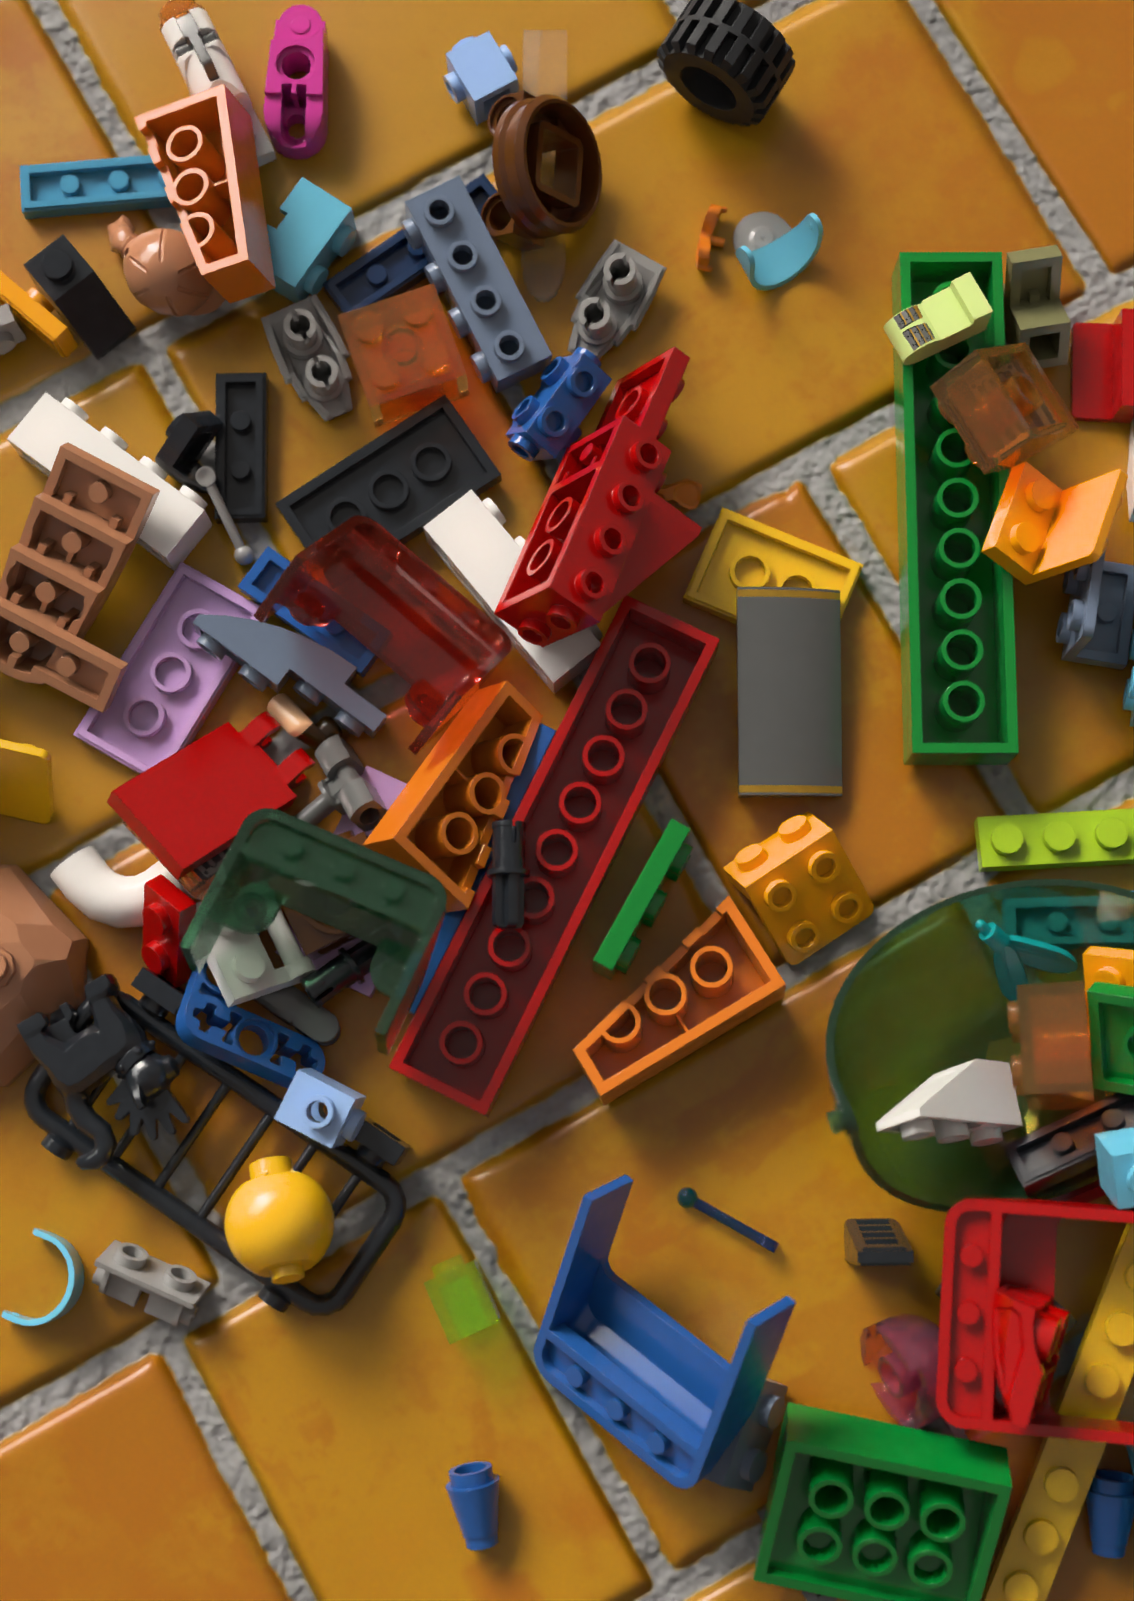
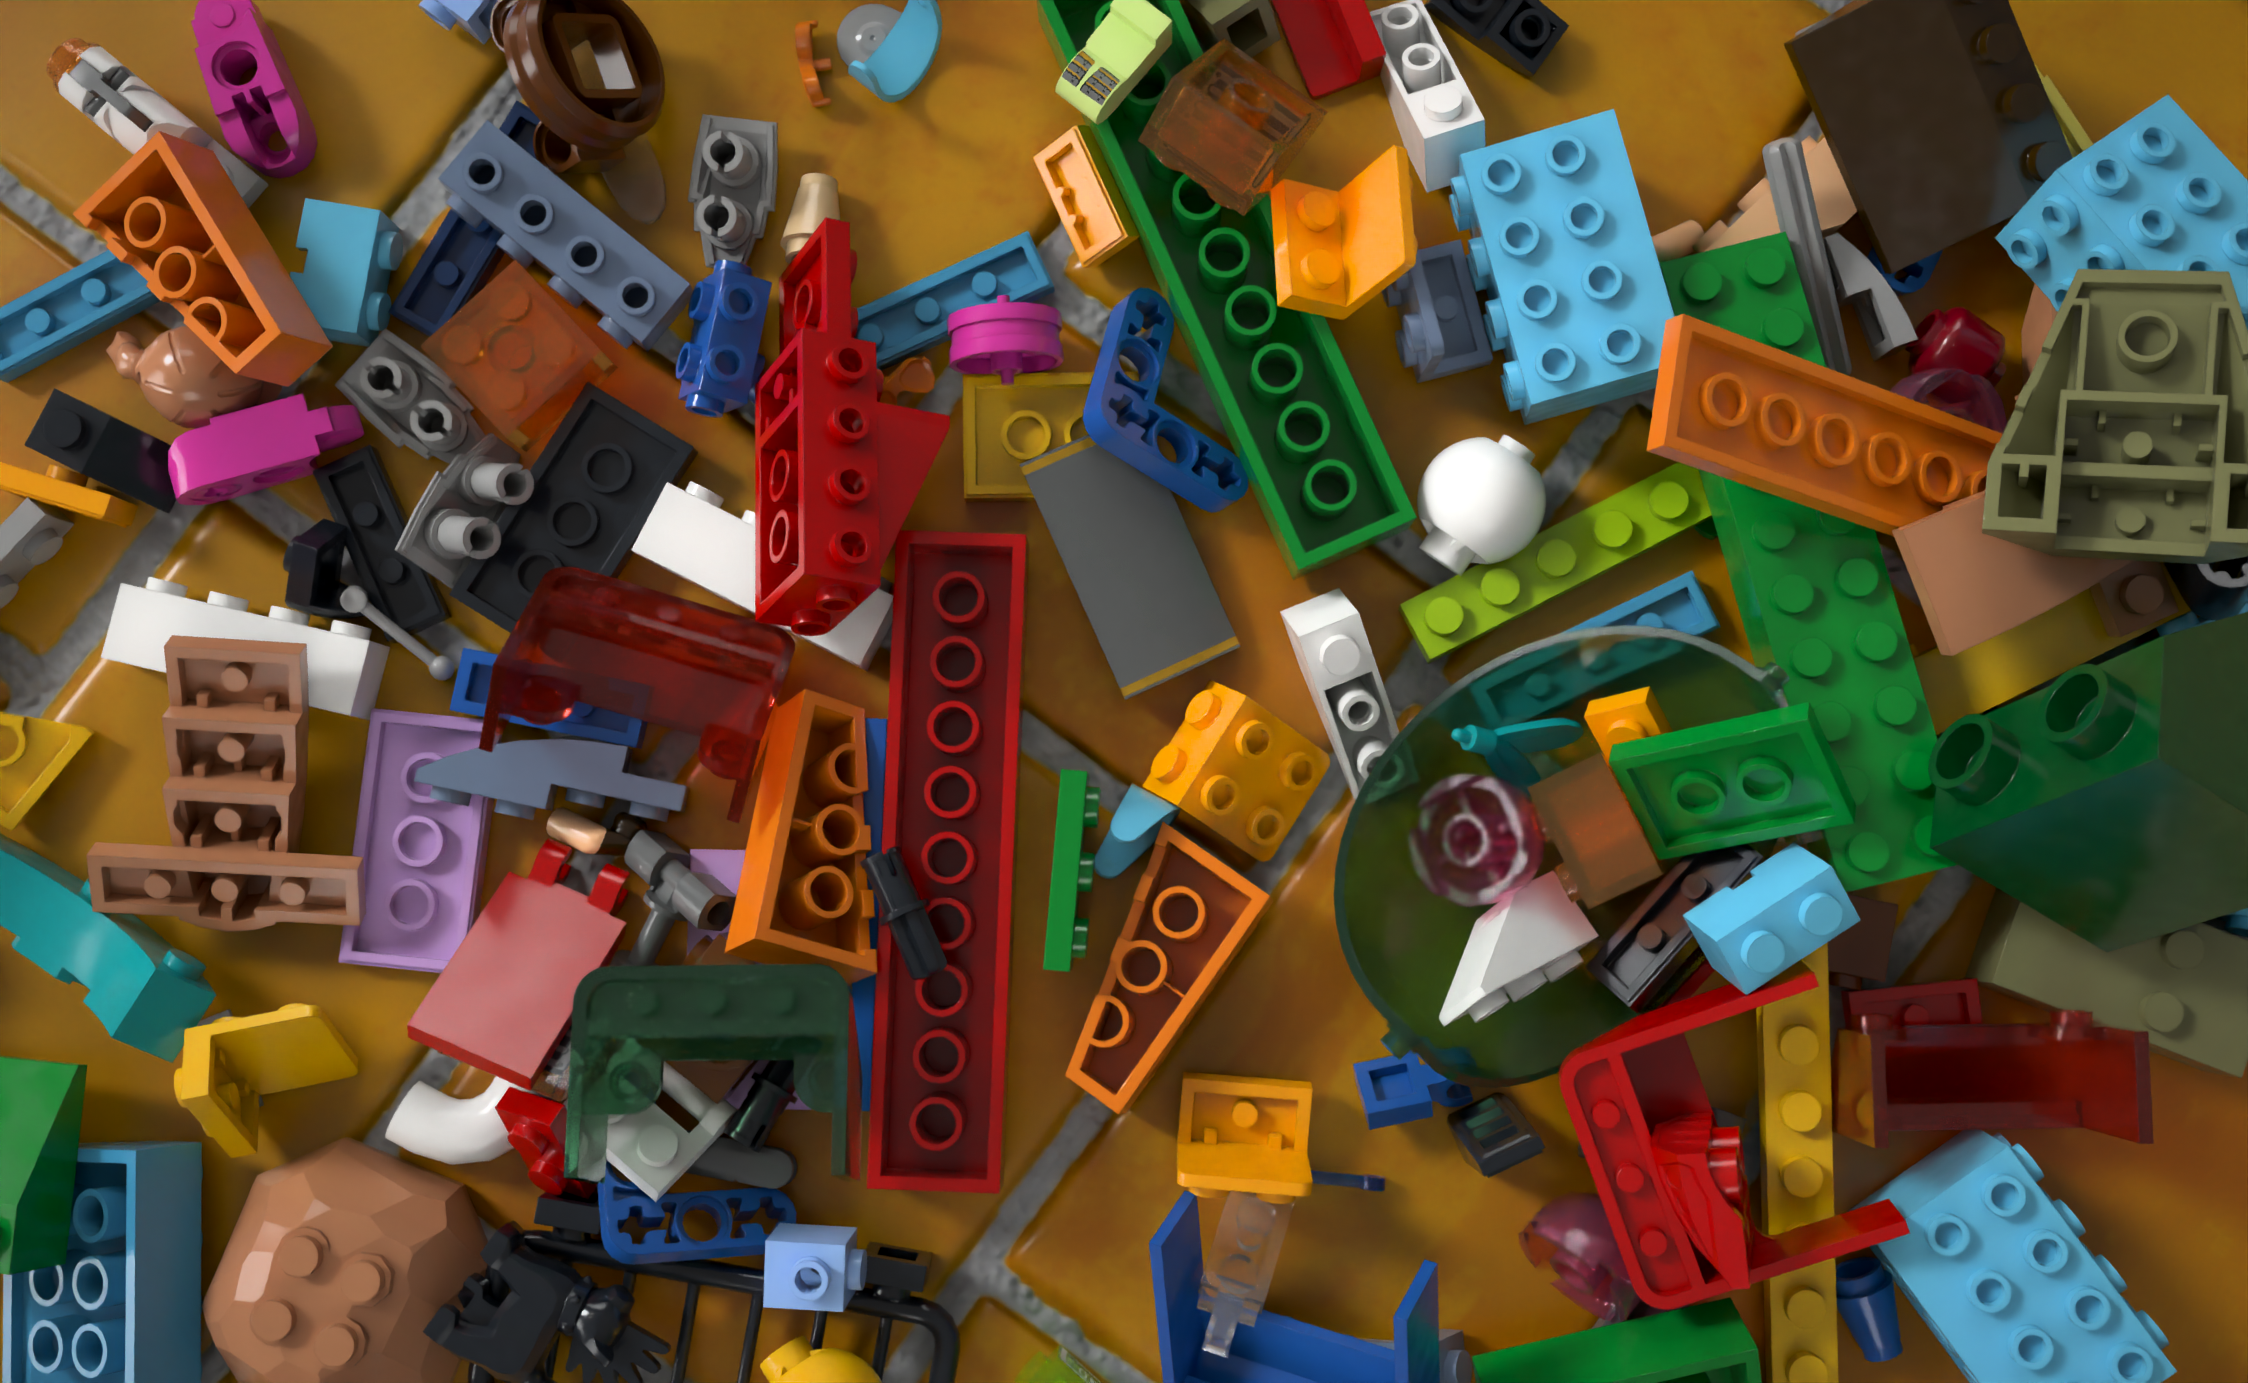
camera: 25 degrees left, 5 degrees up
(185, 340) = (257, 448): none -> dark pink piece
(312, 447) = (461, 510): none -> light grey connector
(646, 1249) = (1240, 1266): none -> clear hinge
(667, 334) = (813, 202): none -> tan cone
(687, 1157) = (1244, 1136): none -> light orange bracket
(702, 895) = (1132, 831): none -> medium azure helmet
(741, 451) = (918, 314): none -> dark azure tile
(766, 492) = (1005, 339): none -> dark pink wheel
(822, 1182) = (1404, 1090): none -> blue plate
(831, 591) = (1127, 421): none -> blue beam
(871, 417) = (1086, 196): none -> light orange plate
(908, 851) = (1342, 681): none -> white slope
(961, 1010) = (1476, 840): none -> clear pink cylinder
(1071, 766) = (1480, 502): none -> white brick

